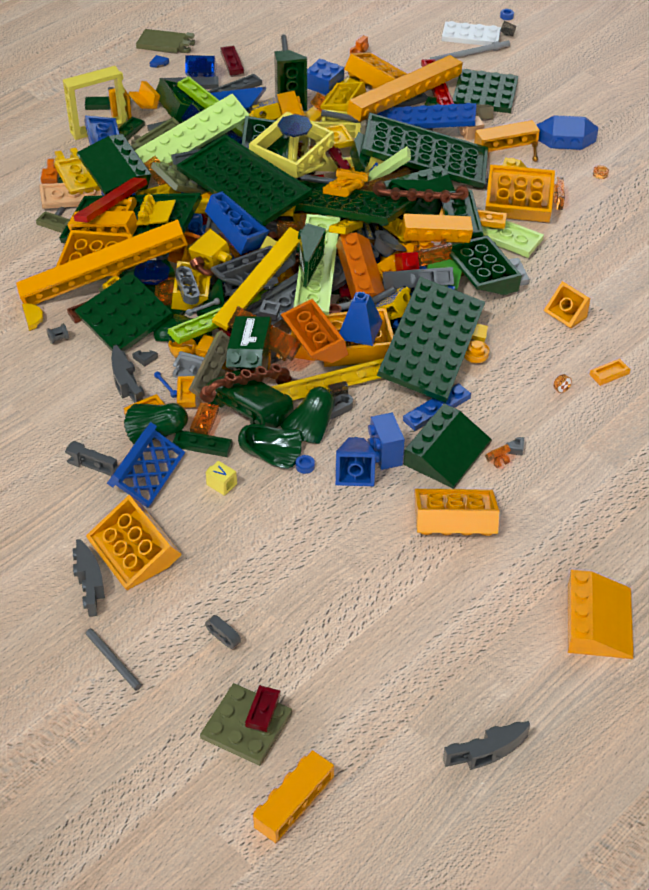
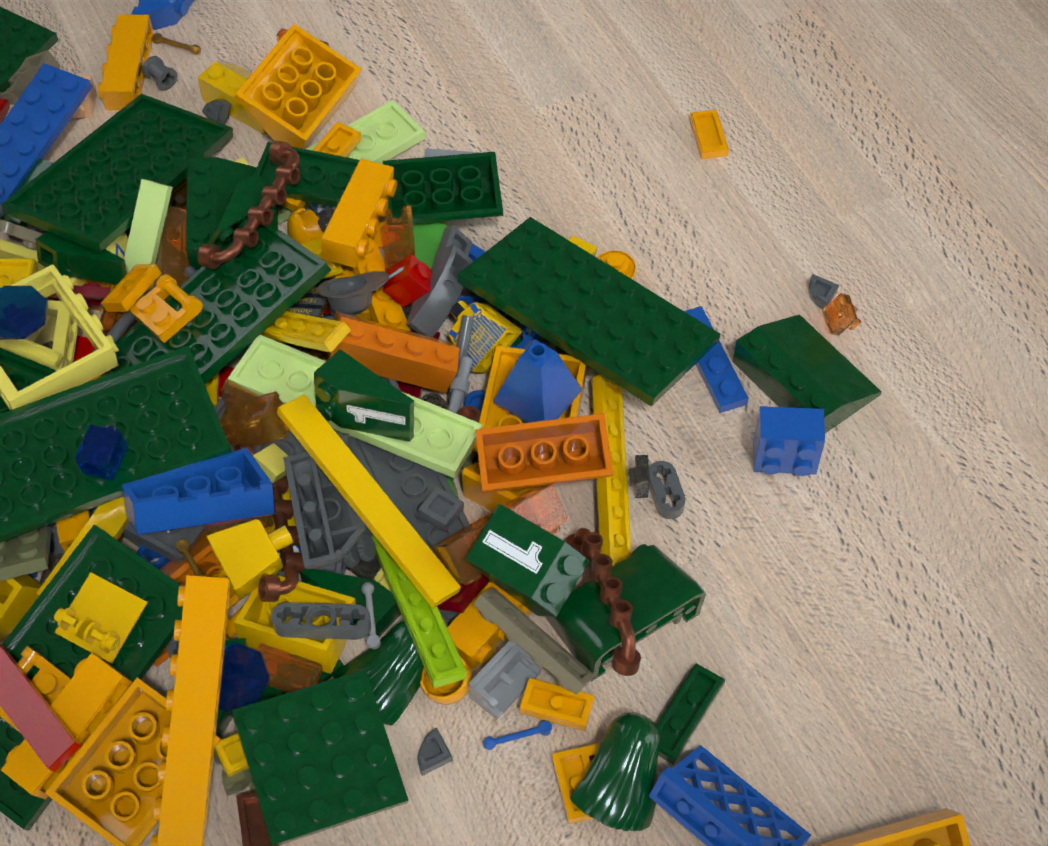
camera: 70 degrees left, 10 degrees up
(124, 376) = (467, 802): dark grey slope -> none
(204, 418) = (636, 694): clear orange plate -> none
(221, 478) = (785, 703): light yellow brick -> none
(236, 179) = (101, 452): none -> clear blue brick
(271, 444) = (735, 606): dark green hair -> none
(305, 464) = (779, 572): blue tile -> none
(312, 415) = (686, 529): dark green hair -> none
(355, 463) = (807, 495): blue slope -> none
(456, 511) = (937, 402): light orange slope -> none
(508, 147) = (163, 76): none -> dark grey bush
(562, 383) = (720, 192): clear orange tile -> none
(568, 305) = (563, 127): light orange slope -> none

